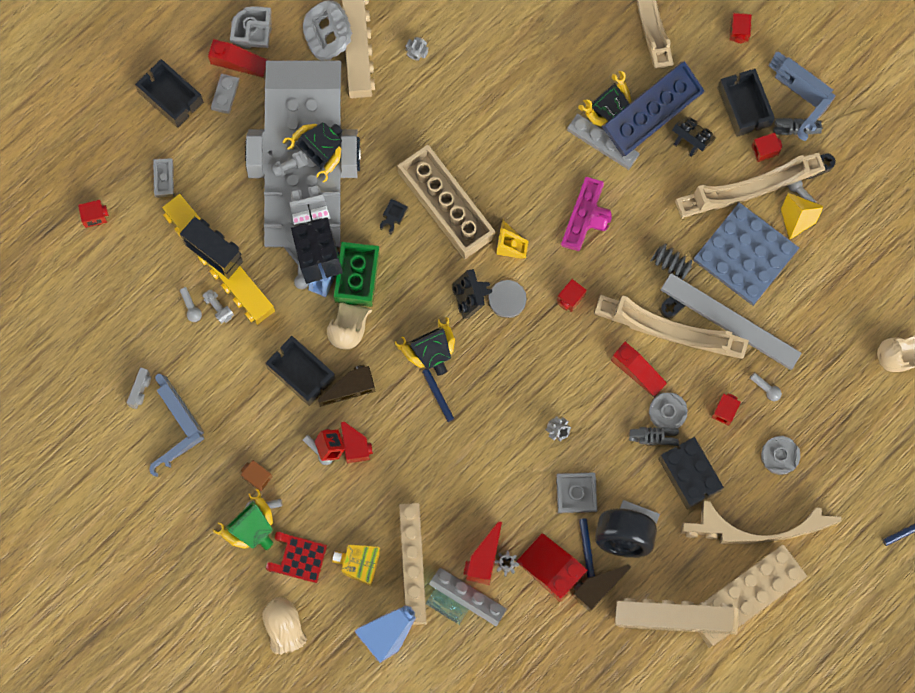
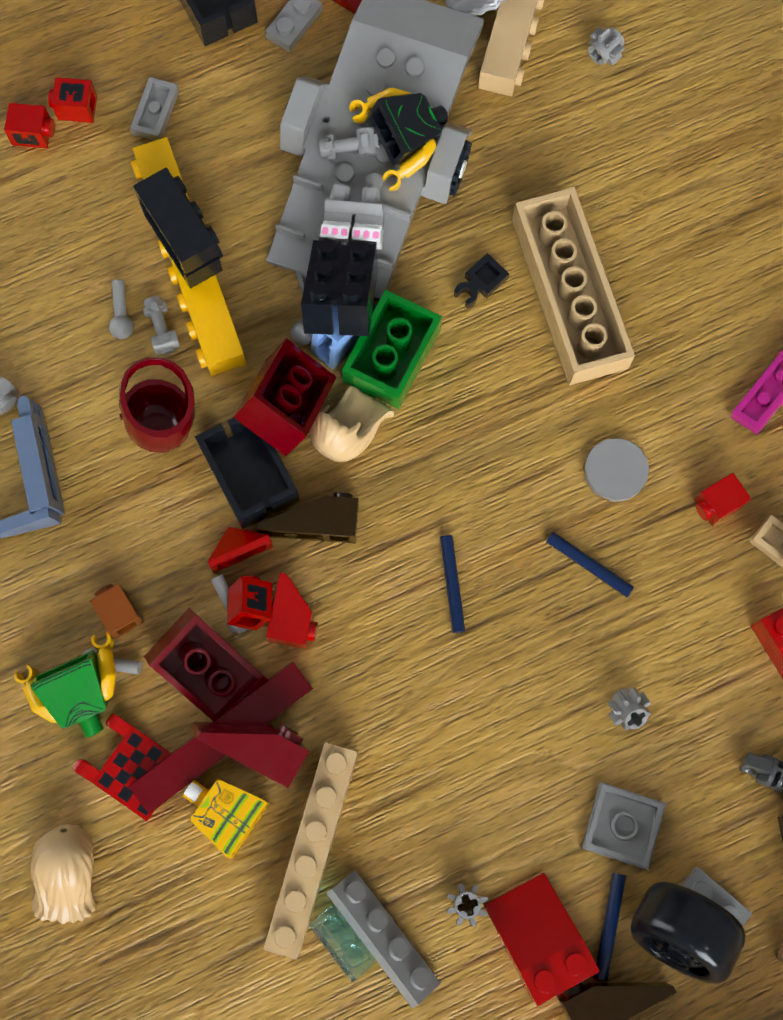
camera: 20 degrees right, 0 degrees up
(112, 189) = (73, 100): none -> red brick
(237, 356) = (155, 410): none -> dark red piece
(308, 323) = (285, 397): none -> dark red brick
(310, 416) = (236, 547): none -> red slope
(317, 489) = (203, 666): none -> dark red slope
(340, 523) = (196, 757): none -> dark red tile
(370, 519) = (261, 747): none -> dark red slope
(387, 633) = (222, 954): medium blue slope -> none
(431, 348) = (467, 505): torso -> none
(470, 293) = (560, 439): black plate -> none
(482, 560) = (430, 887): red slope -> none
(510, 357) = (590, 564): none -> dark blue bar
(511, 243) = (651, 385): yellow slope -> none

